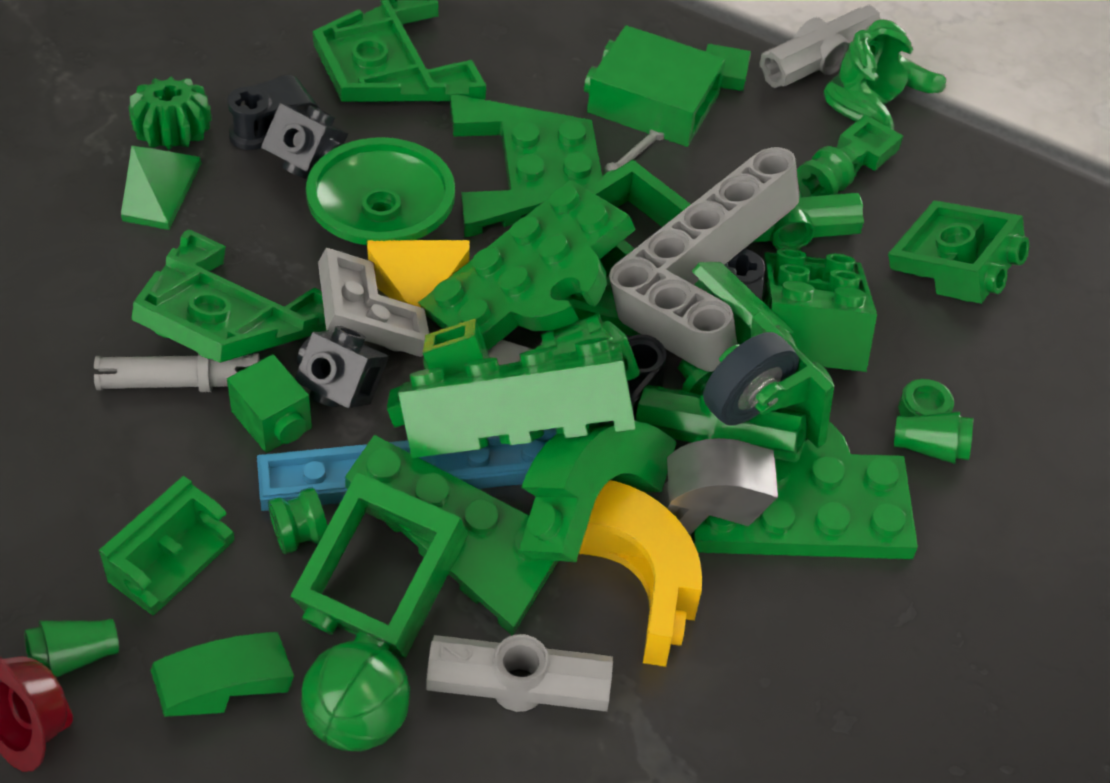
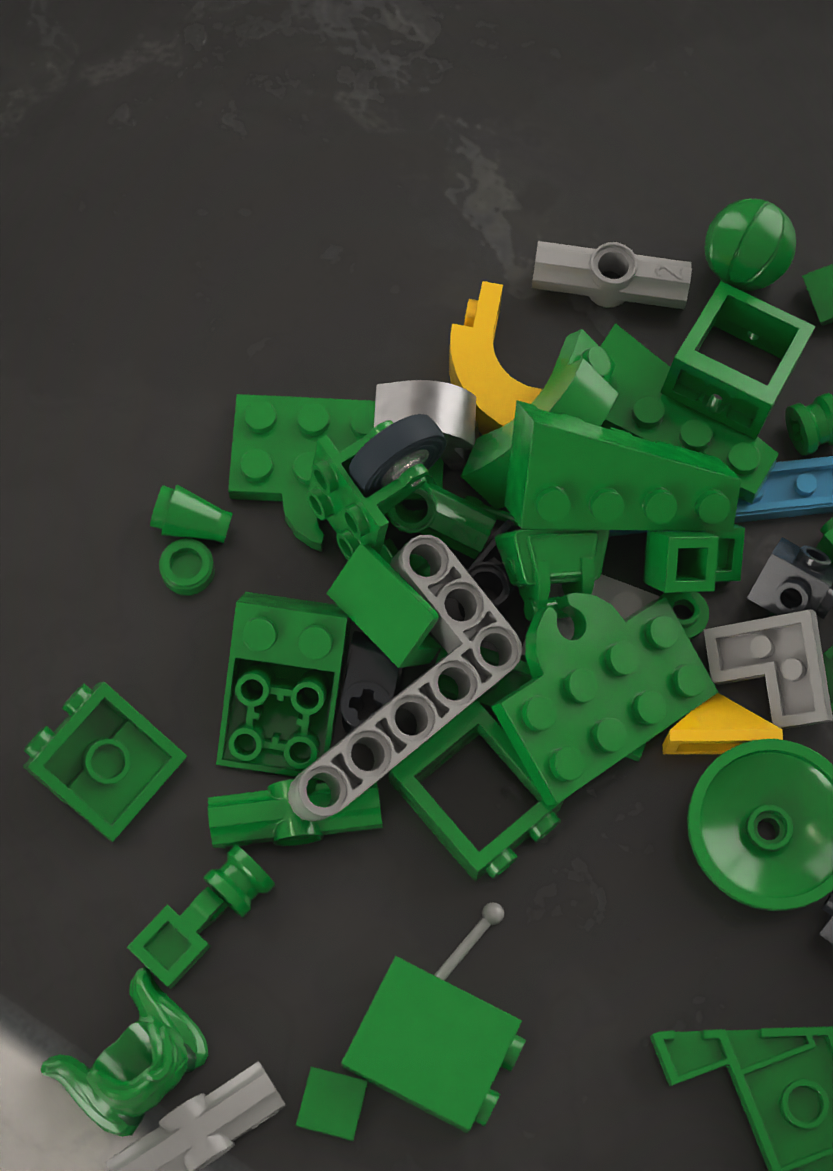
camera: 175 degrees left, 20 degrees up
(539, 152) = (573, 926): green wing -> none

